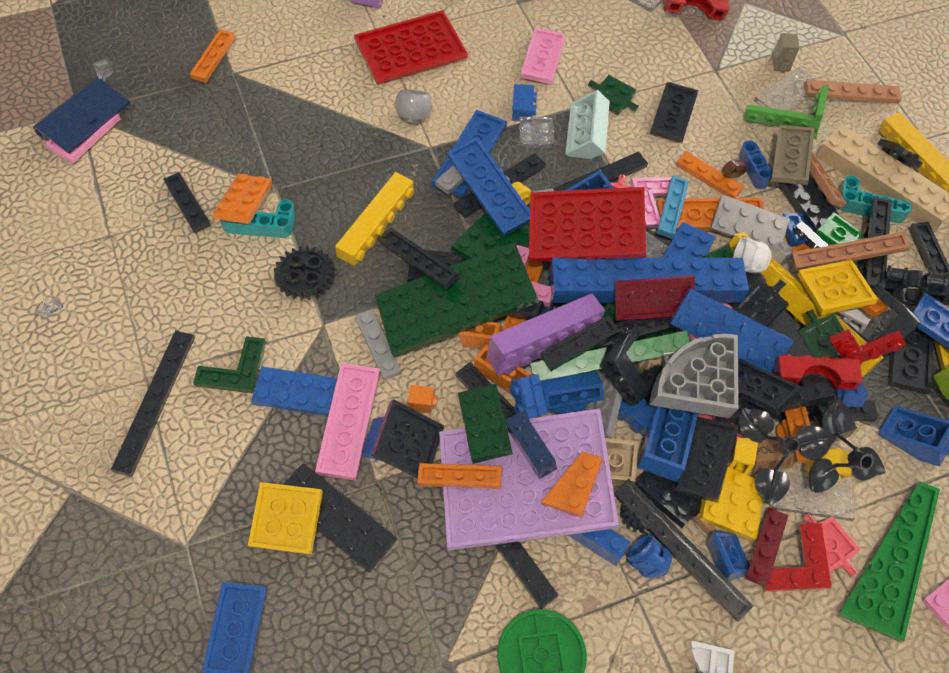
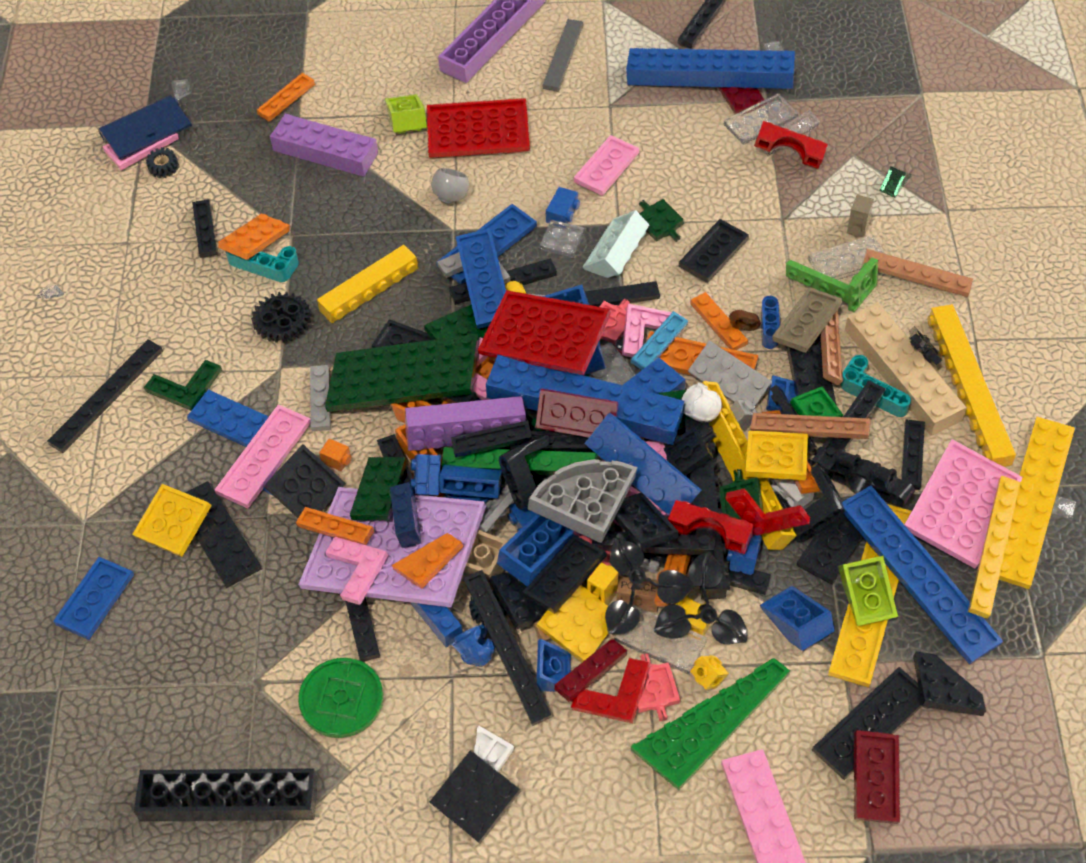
camera: 25 degrees right, 5 degrees down
(106, 144) = (155, 161): none -> black bush
(271, 93) = (324, 145): none -> medium lavender brick
(337, 47) = (406, 113): none -> lime slope
(419, 258) = (386, 328): black plate -> none
(513, 502) = (368, 562): none -> bright pink plate
(792, 17) = (894, 181): none -> clear green slope
(873, 513) = (708, 672): none -> yellow brick

